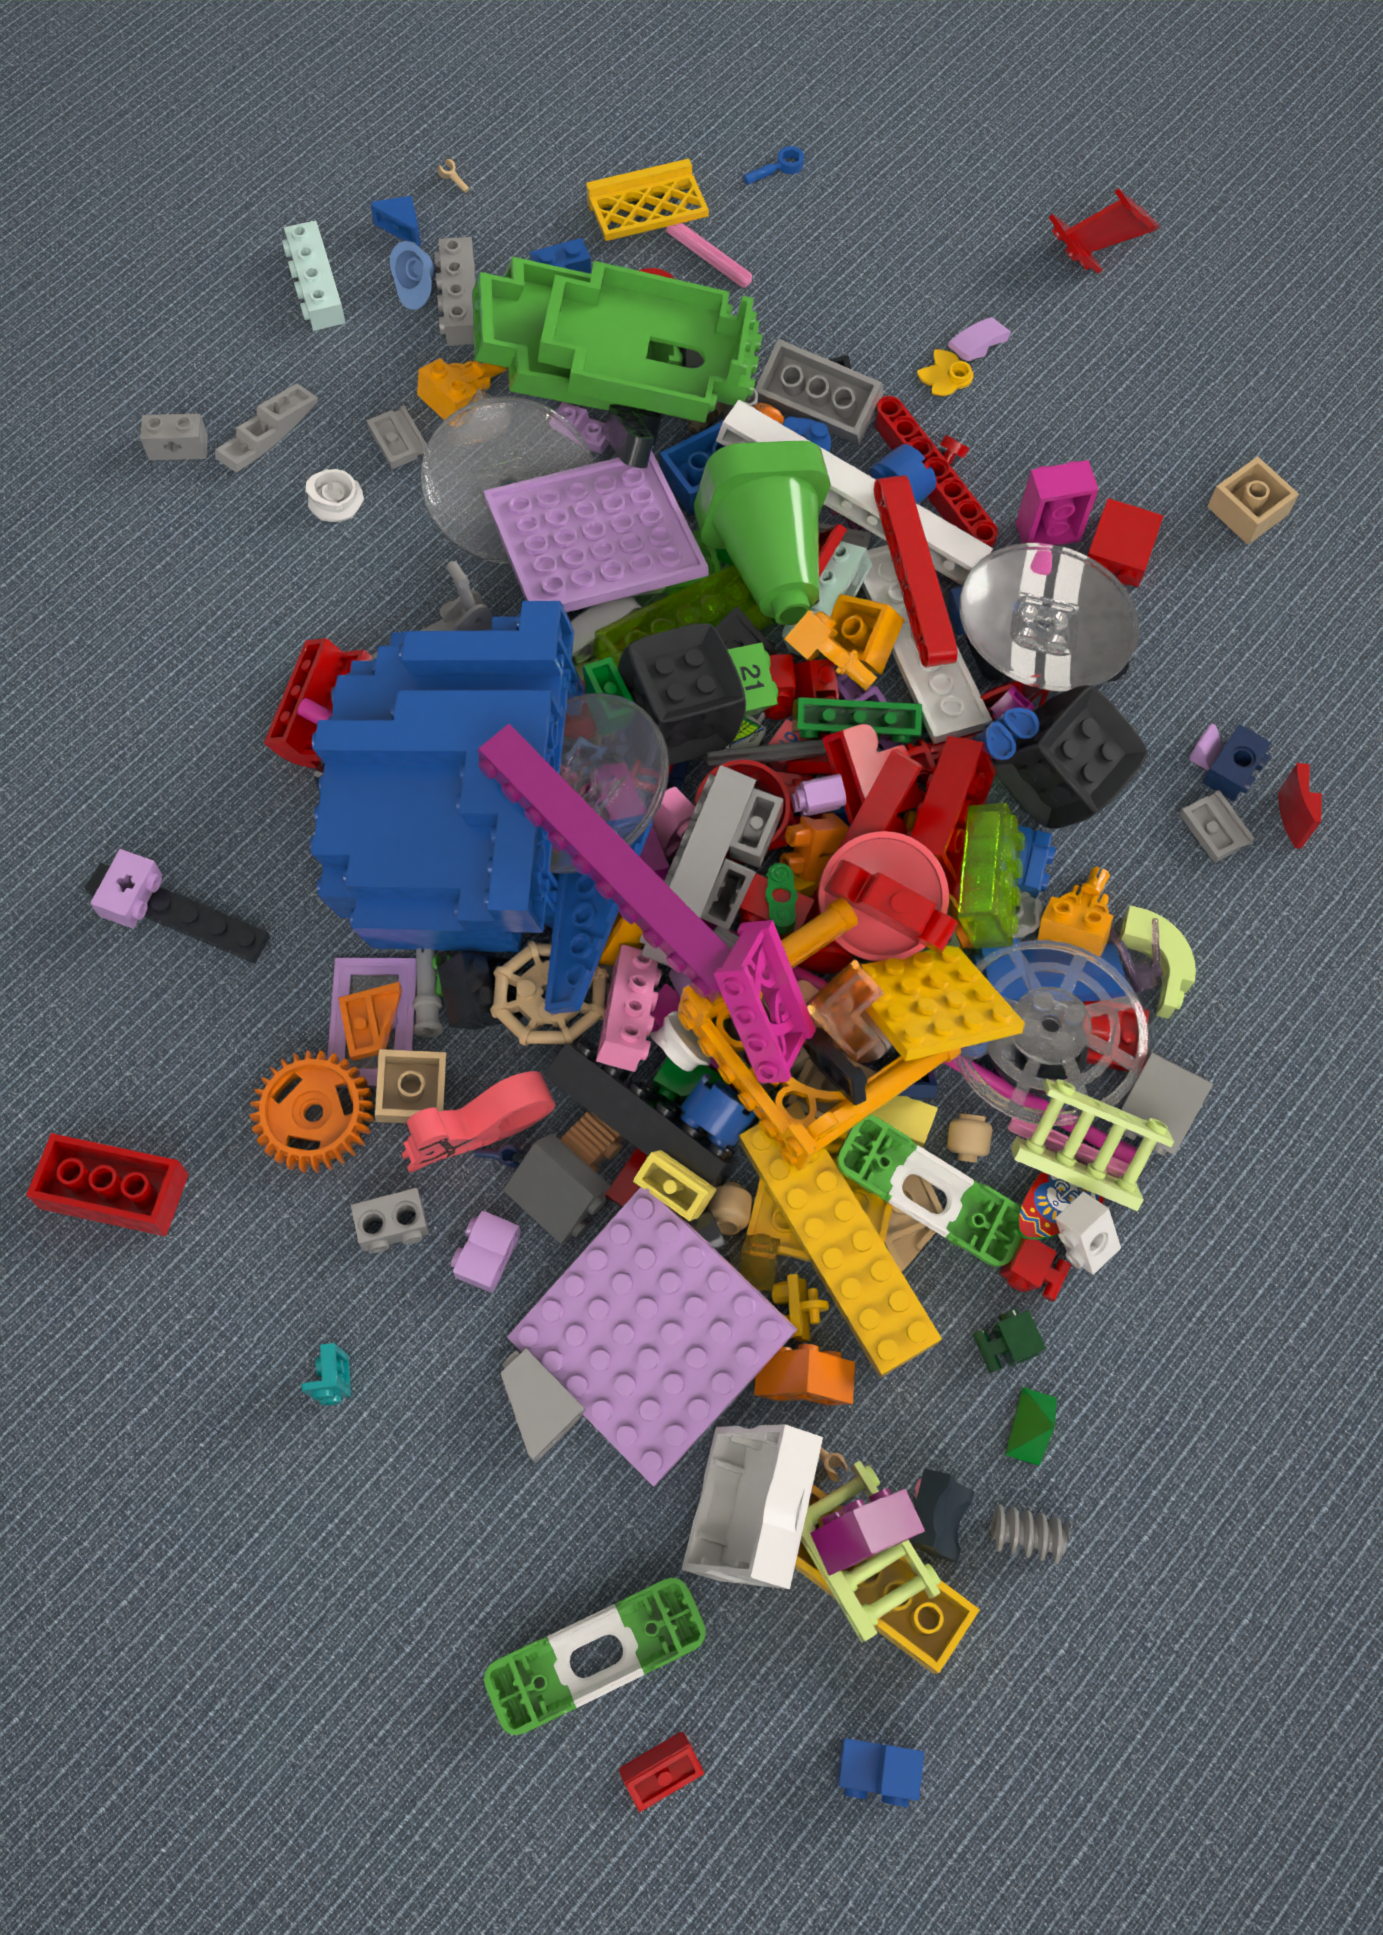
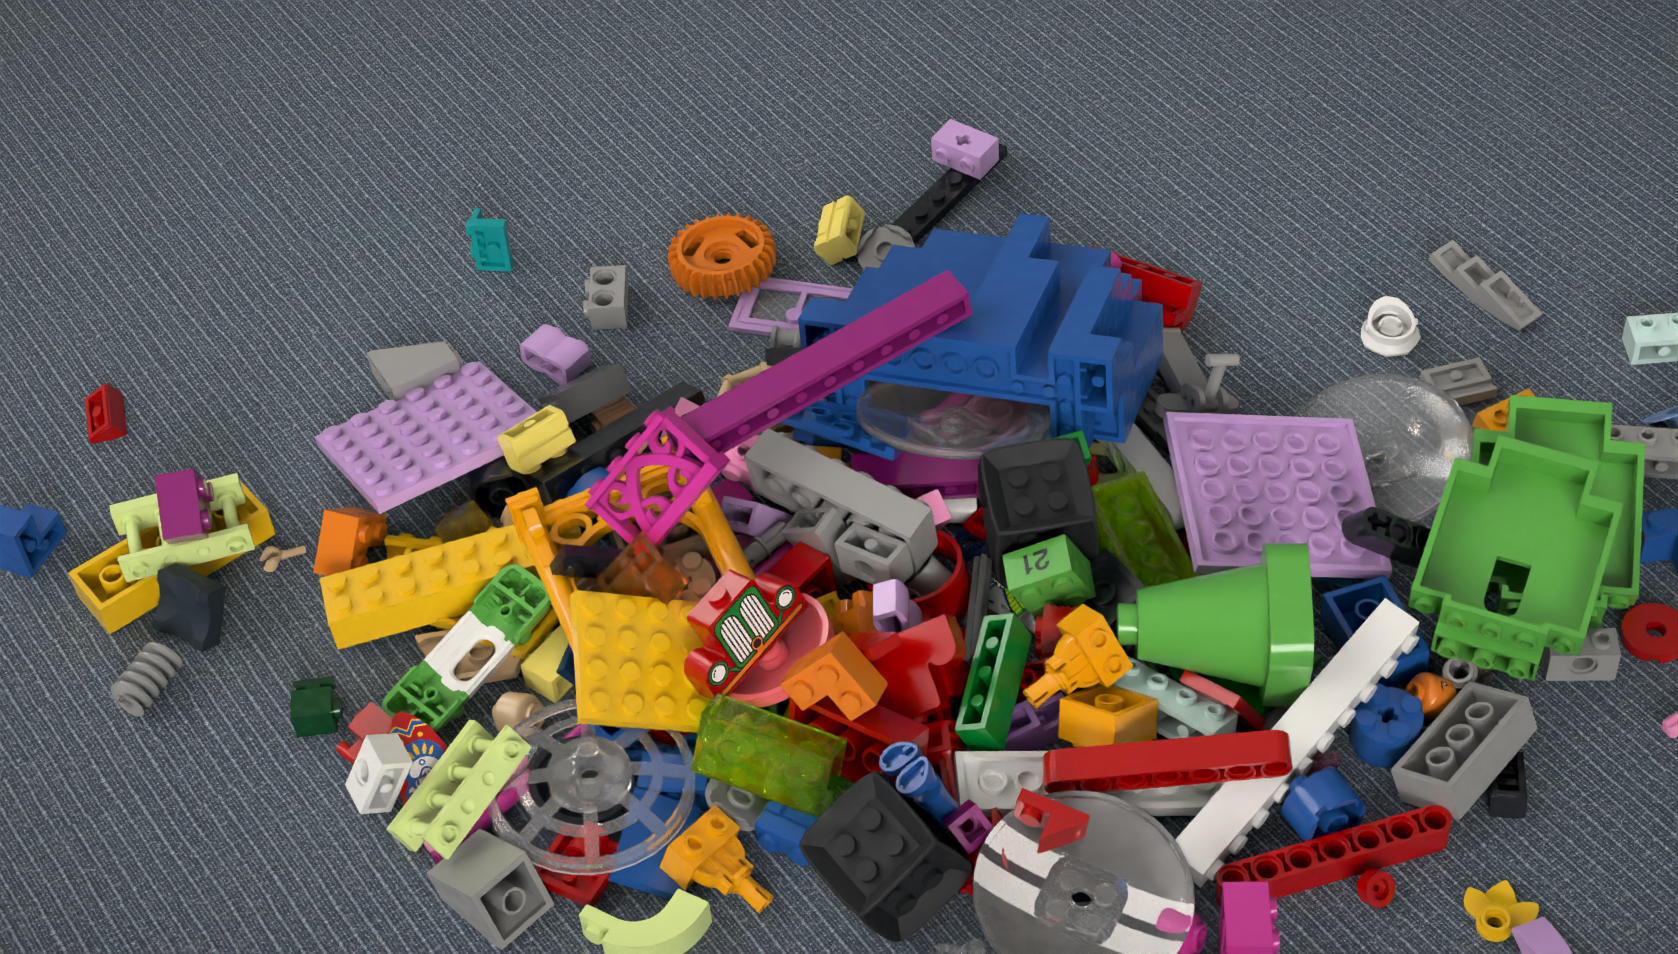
camera: 110 degrees right, 20 degrees down
(108, 1184) = (702, 132): red brick -> none
(174, 436) = (1475, 214): light grey brick -> none
(259, 997) = (839, 230): none -> light yellow brick
(283, 947) = (877, 243): none -> light grey tile
(369, 1019) = (789, 295): orange wing -> none
(408, 1084) = (718, 315): tan brick -> none
(489, 1118) = (661, 333): coral animal -> none
(504, 1155) = (636, 379): dark blue hand -> none
(538, 1680) = (199, 345): bright green piece -> none
(753, 1505) = (253, 457): white tile -> none
(783, 914) = (817, 572): green piece -> none
(937, 806) = (835, 671): none -> orange brick
(1015, 628) = (1060, 822): none -> red slope
(1031, 1427) = (238, 713): green slope -> none
(1140, 973) = (634, 903): clear purple plant -> none

